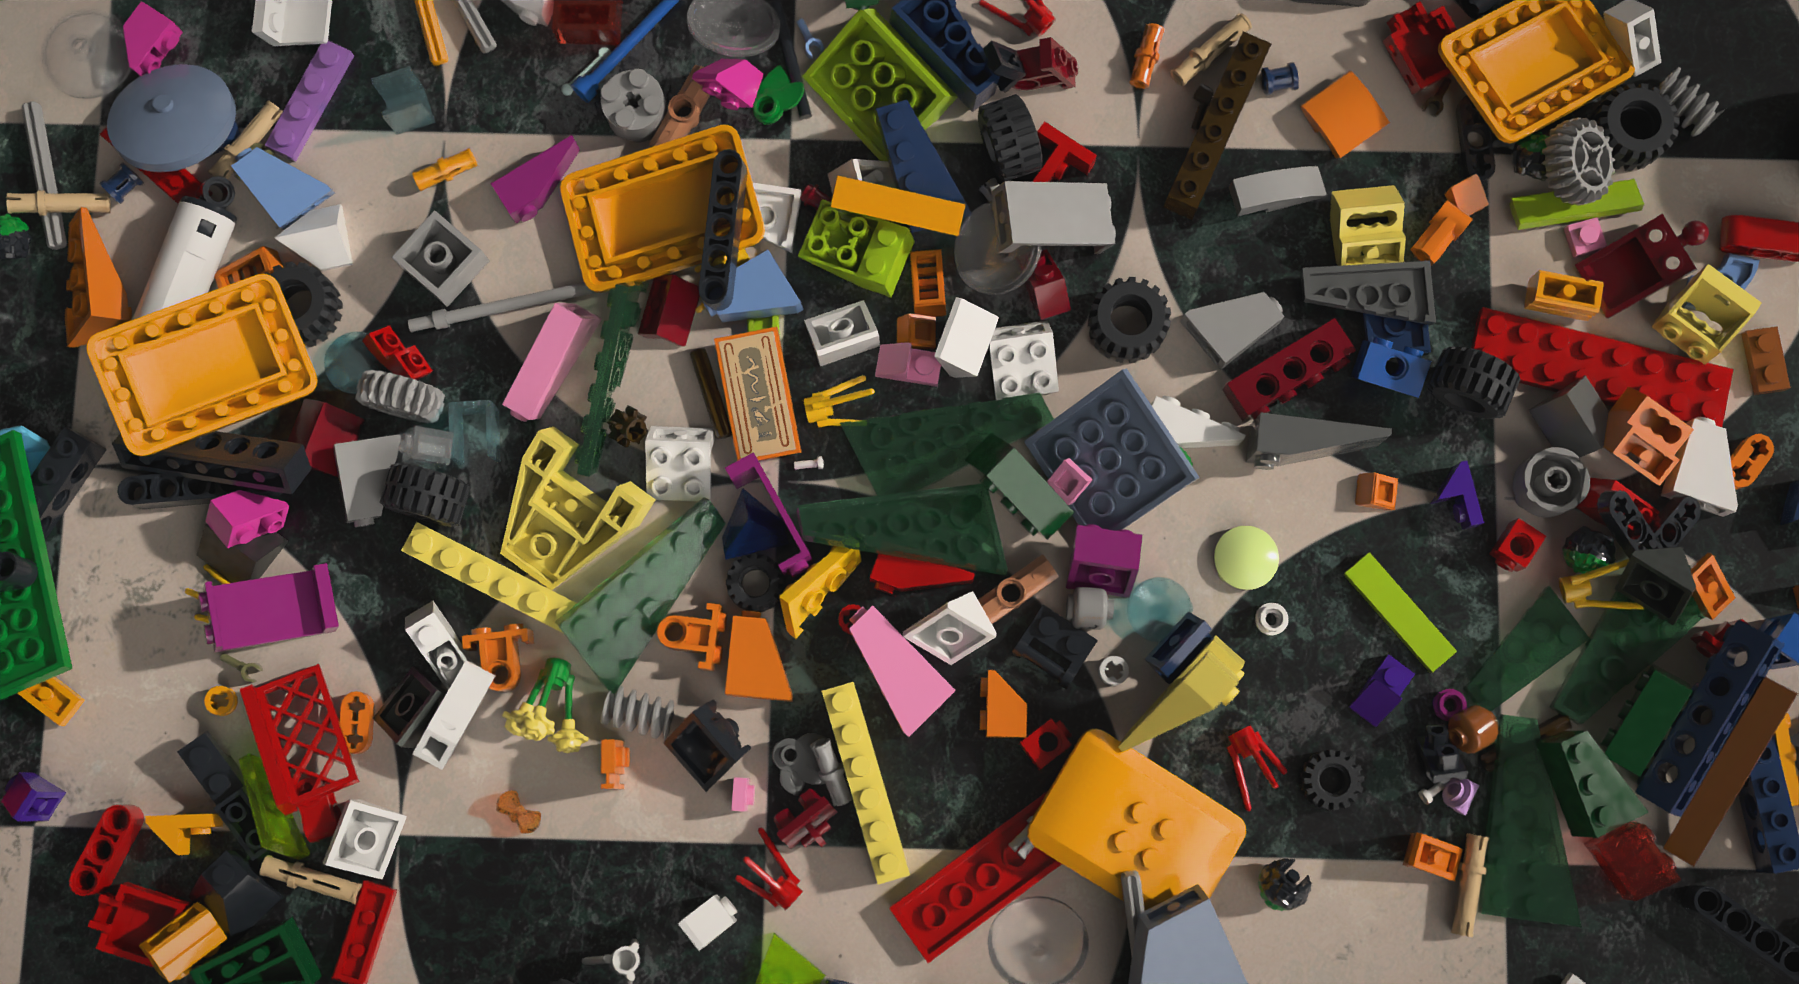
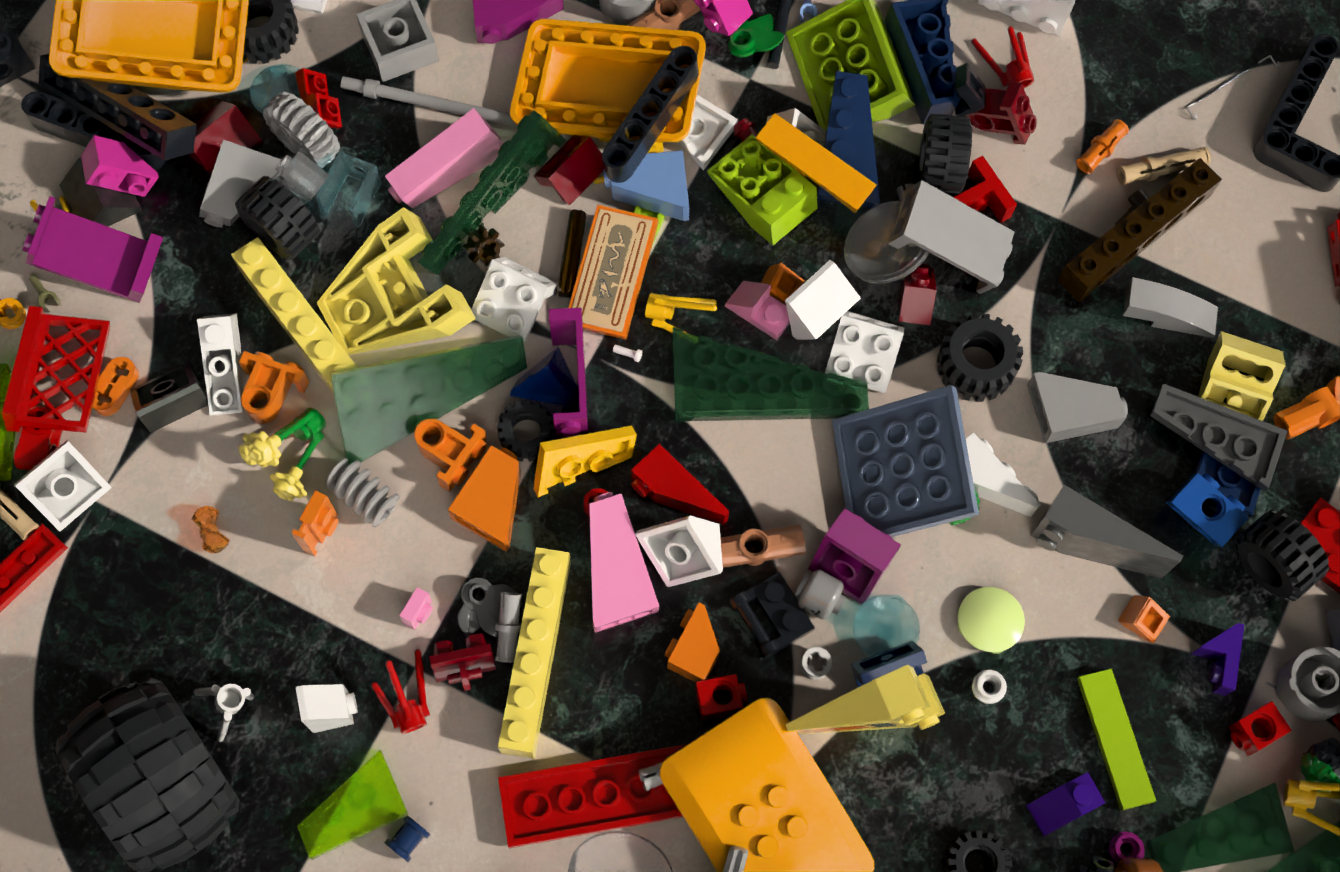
camera: 20 degrees right, 10 degrees down
(453, 715) = (198, 414): white slope -> none
(706, 744) = (408, 546): black brick -> none
(842, 333) = (713, 256): white slope -> none
(931, 302) = (806, 265): orange slope -> none
(931, 525) = (710, 451): clear green wing -> none
(1019, 485) = (808, 454): wedge -> none
(1069, 481) = (855, 469): bright pink plate -> none
(1249, 743) = (912, 791): red plant -> none
(1288, 74) = (1216, 216): dark blue bush -> none
(1327, 339) = (1157, 457): dark red brick -> none
(1344, 114) = (1263, 273): orange slope -> none

